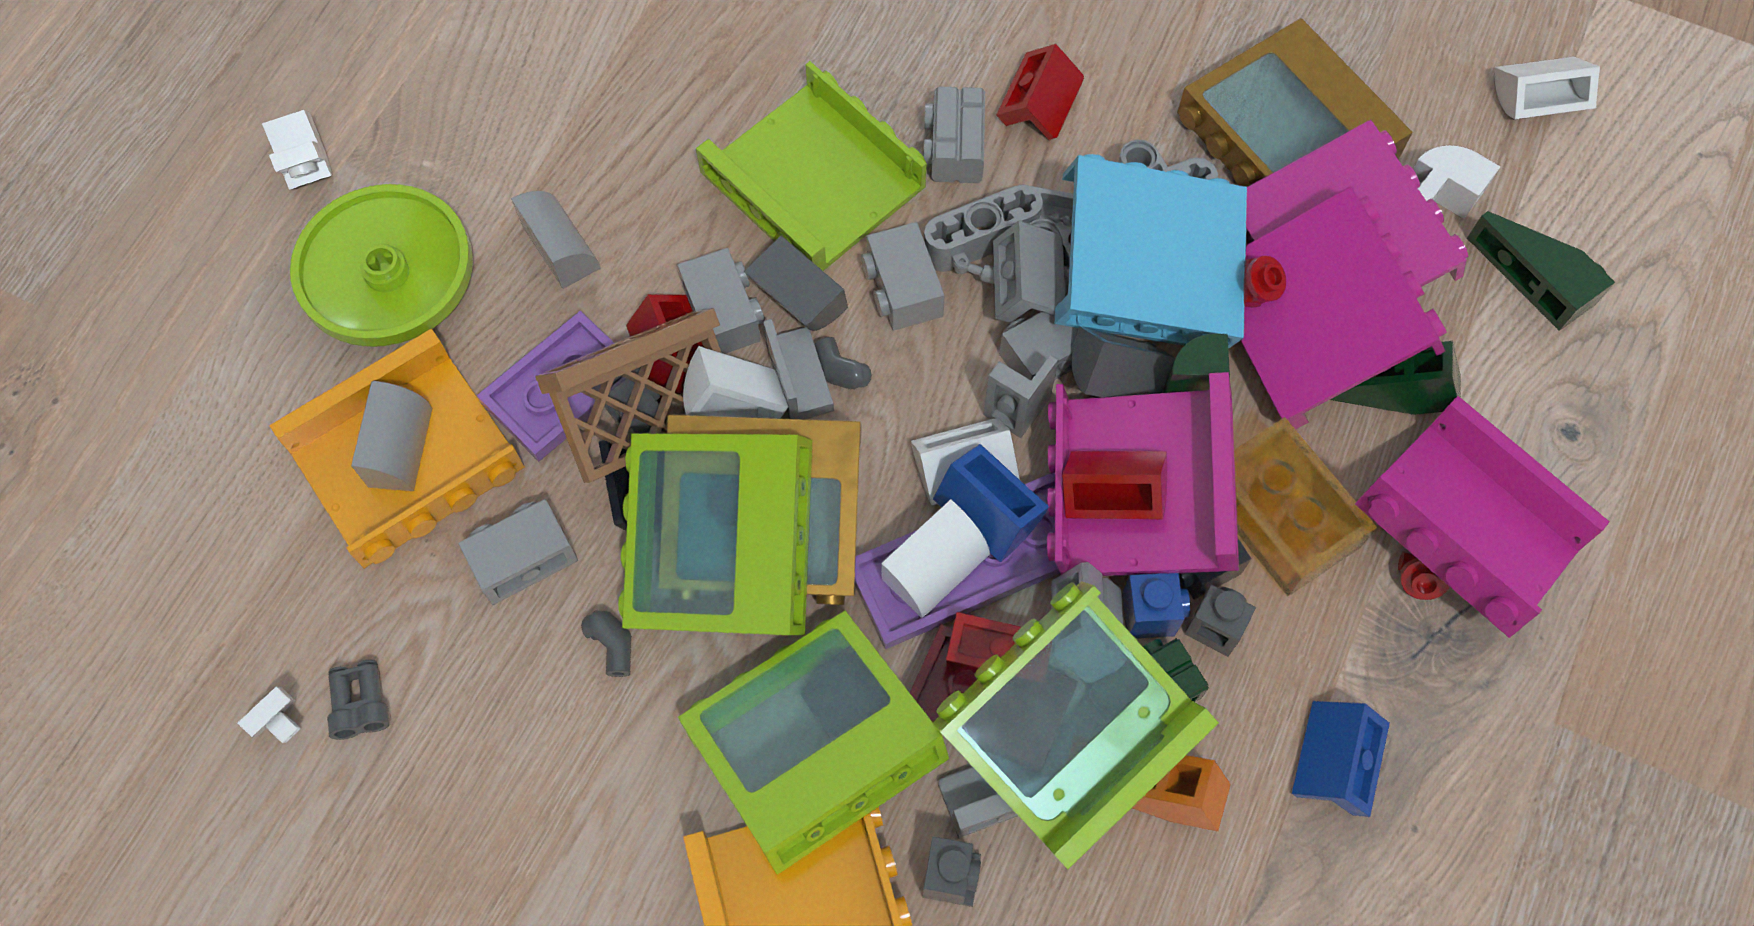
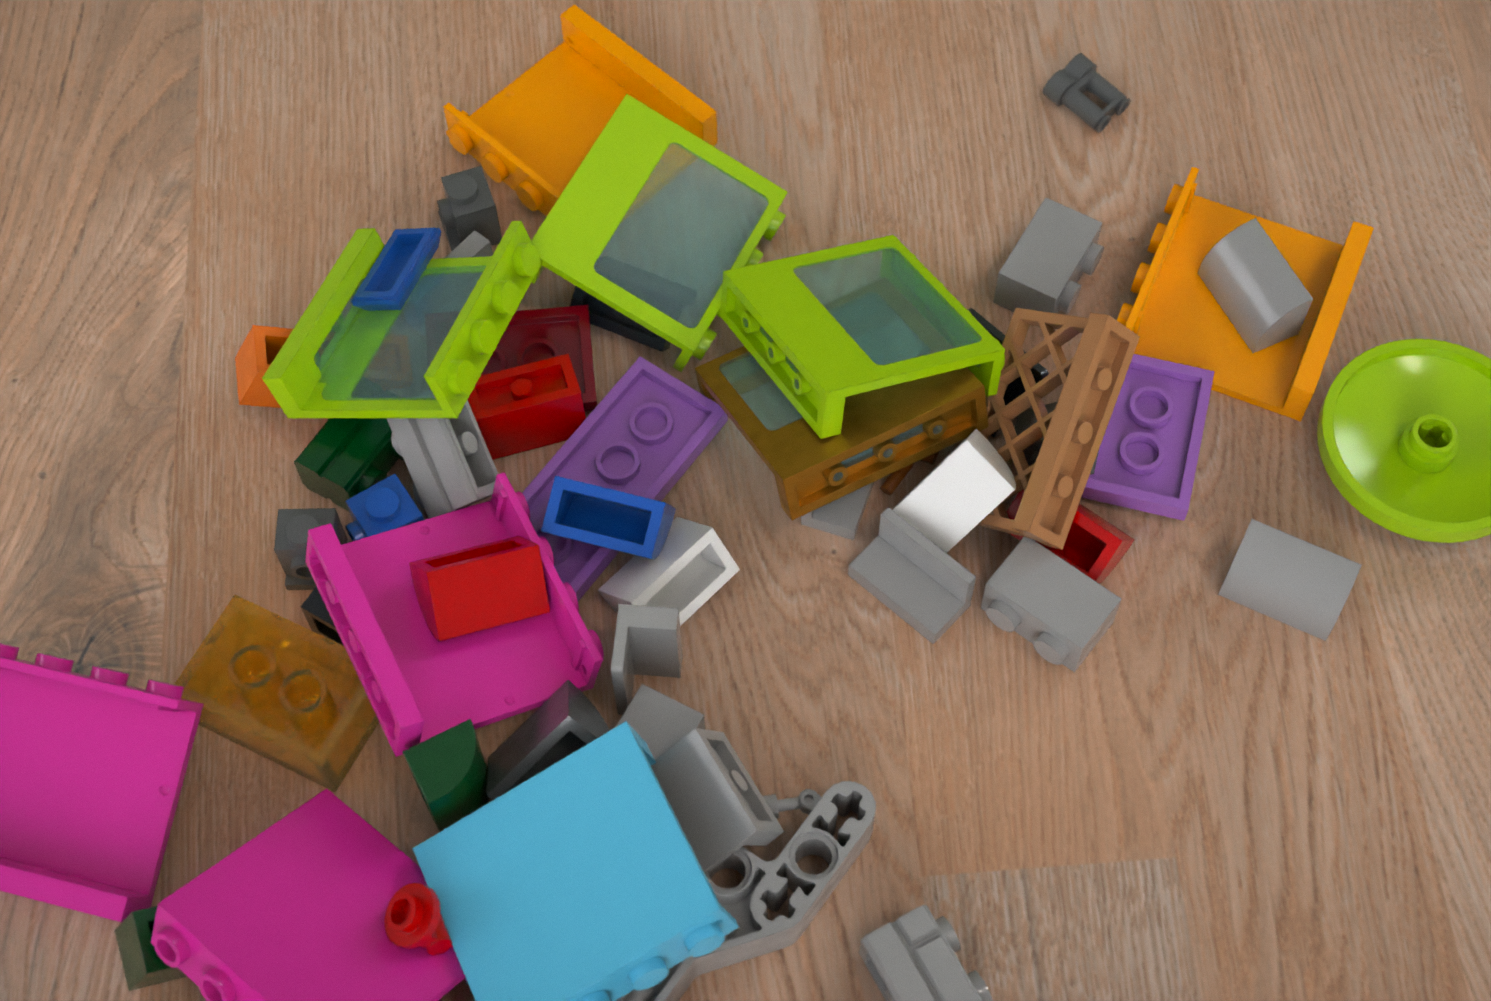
camera: 150 degrees right, 5 degrees down
(270, 715) = (1141, 42): white tile -> none
(608, 630) = (922, 244): dark grey arm -> none
(798, 285) = (978, 667): dark grey brick -> none
(817, 170) = (1071, 835): lime panel -> none
(841, 370) = (870, 607): dark grey arm -> none
(904, 276) = (864, 743): light grey brick -> none
(935, 559) = (636, 436): white brick -> none
(1050, 809) = (397, 269): none -> blue tile
(1342, 755) = (136, 488): blue panel -> none

